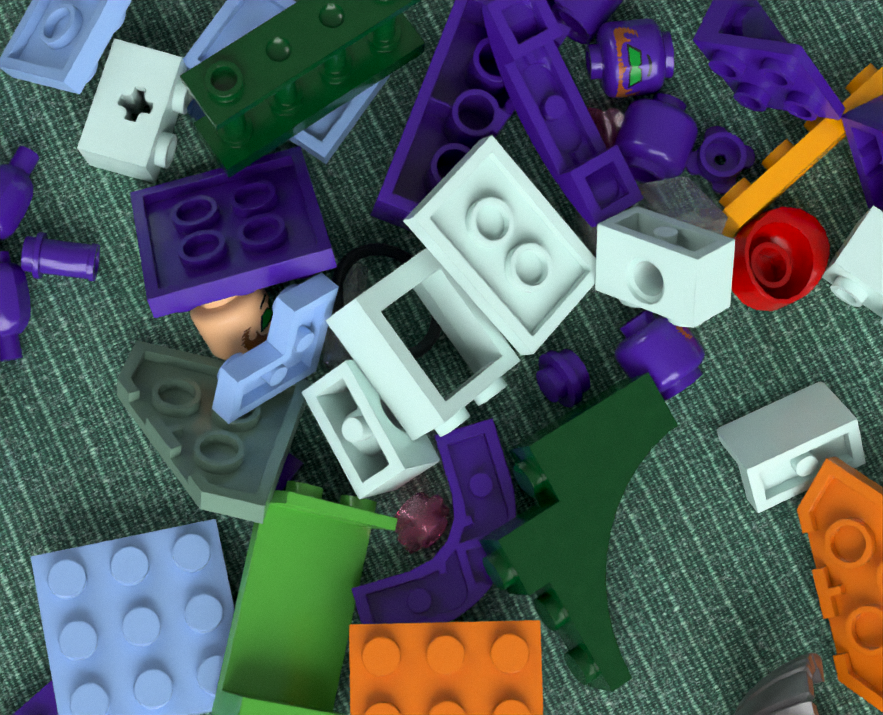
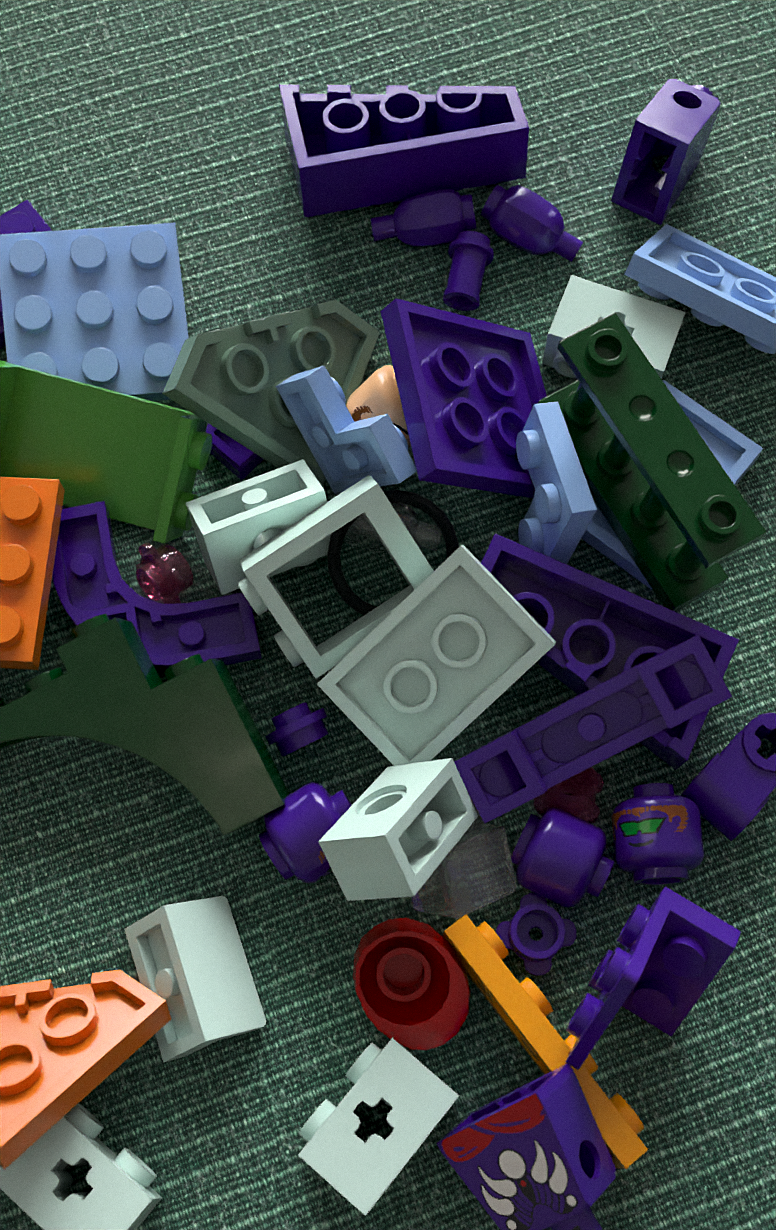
camera: 95 degrees right, 10 degrees down
(333, 142) = (562, 495): none -> light blue plate

